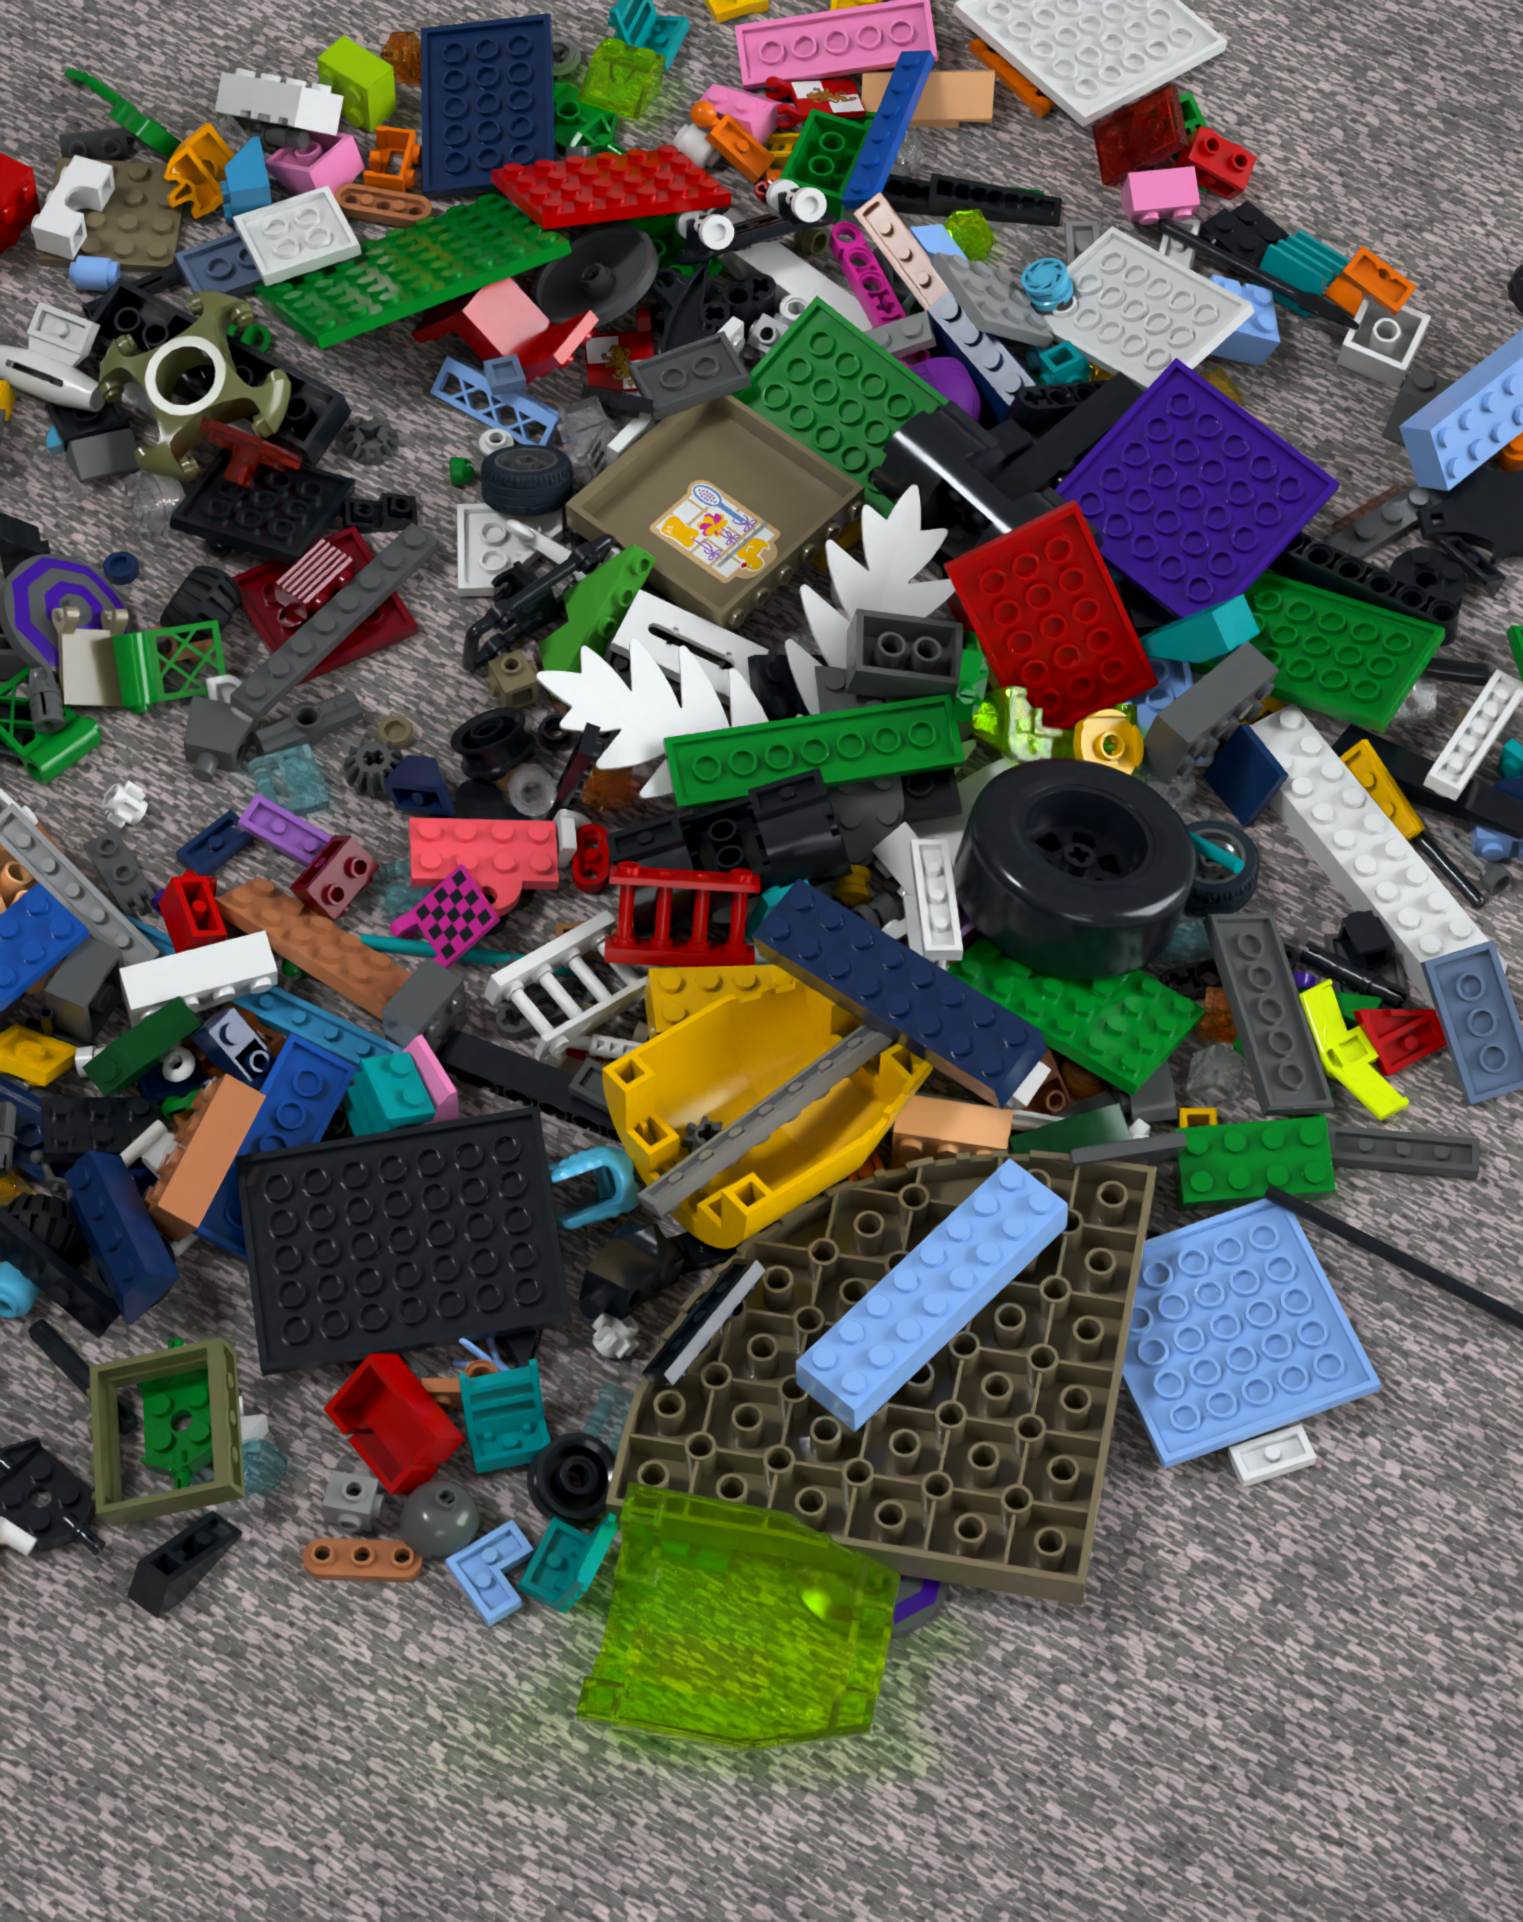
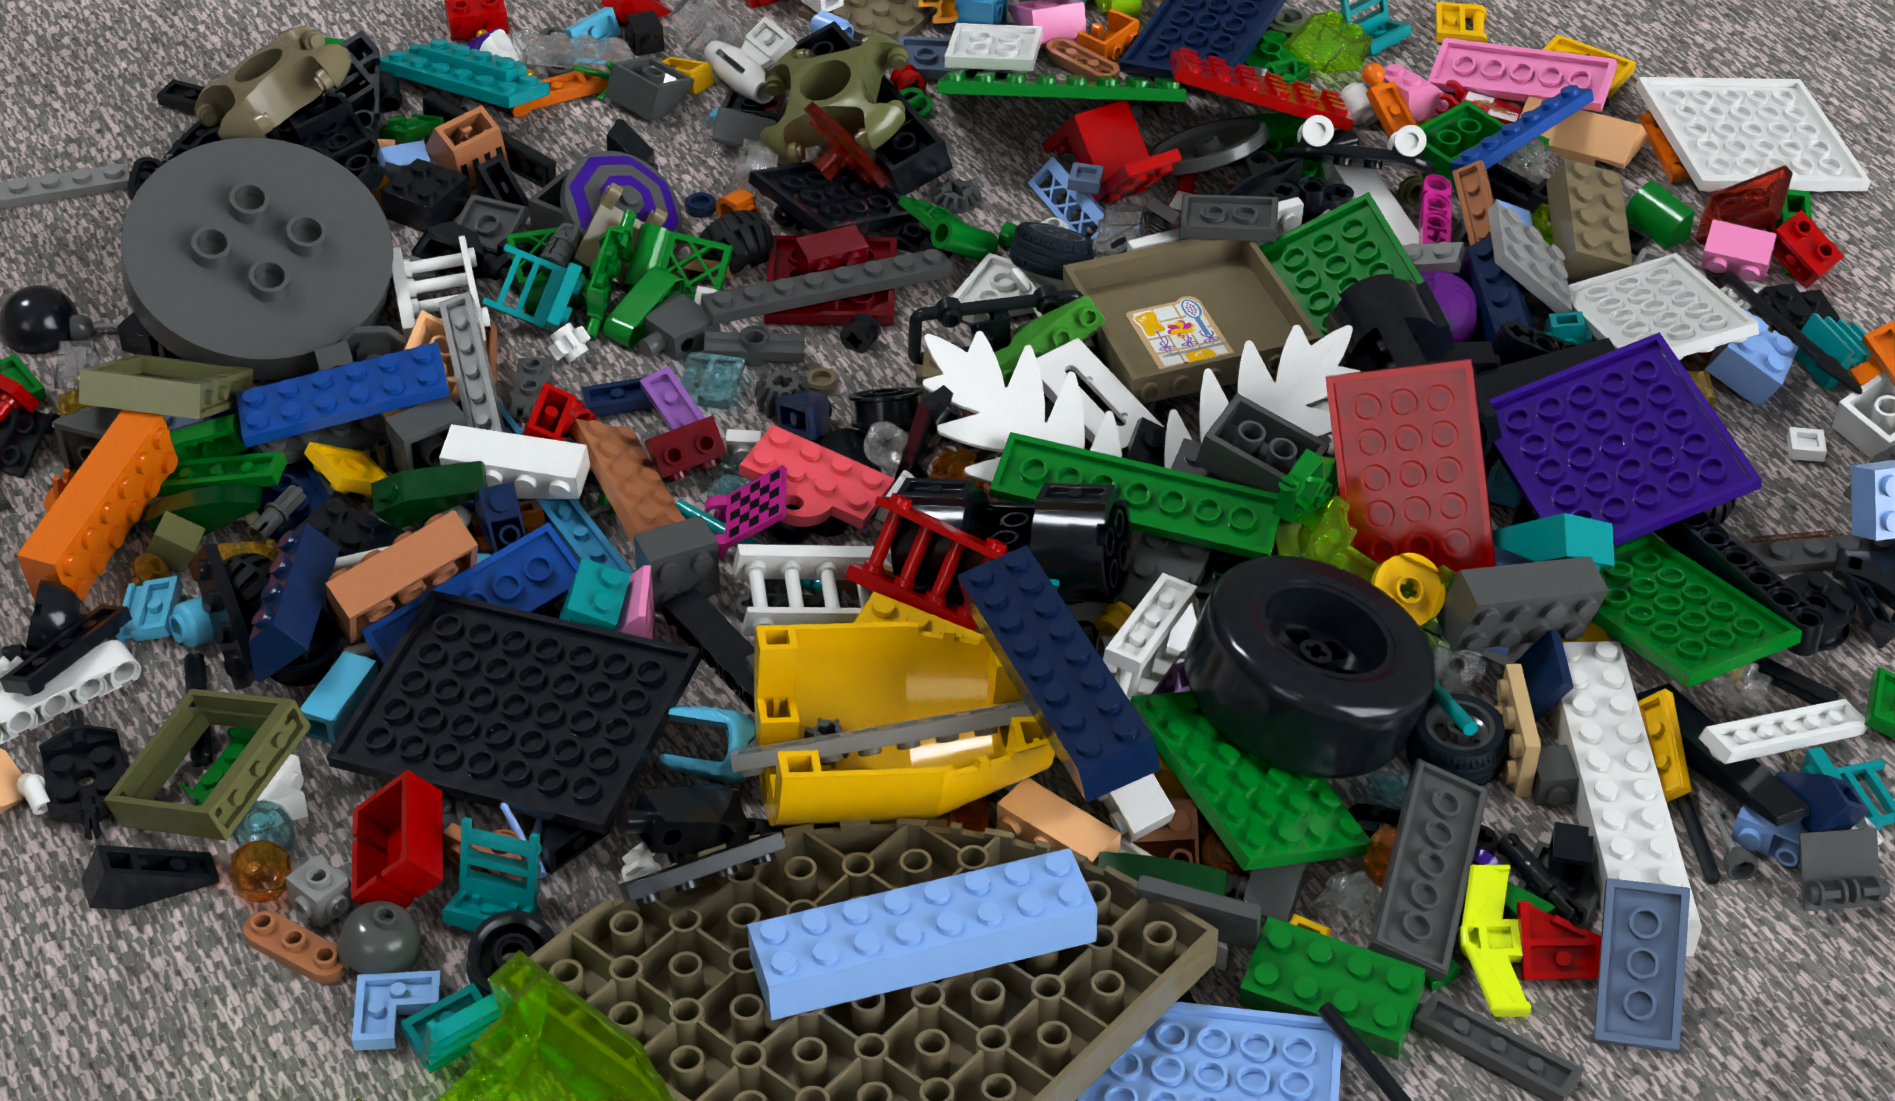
camera: 30 degrees right, 15 degrees down
(80, 760) = (553, 303): none -> teal plate
(113, 723) = (614, 248): none -> green plate
(167, 728) = (626, 321): none -> green beam
(168, 558) = (737, 200): none -> orange plate
(209, 1296) = (338, 696): none -> medium azure brick
(281, 1496) = (258, 863): none -> clear orange hair
(382, 845) = (741, 442): none -> white plate
(398, 660) = (860, 333): none -> black wheel
(414, 499) = (950, 232): none -> green piece
(1006, 212) = (1588, 219): none -> dark tan brick
(1047, 284) = (1590, 271): medium azure wheel -> none
(1059, 172) = (1660, 215): none -> green brick
(1276, 852) = (1524, 738): none -> tan plate
(1304, 865) = (1555, 777): none -> dark grey brick
(1326, 396) = (1806, 444): none -> white plate

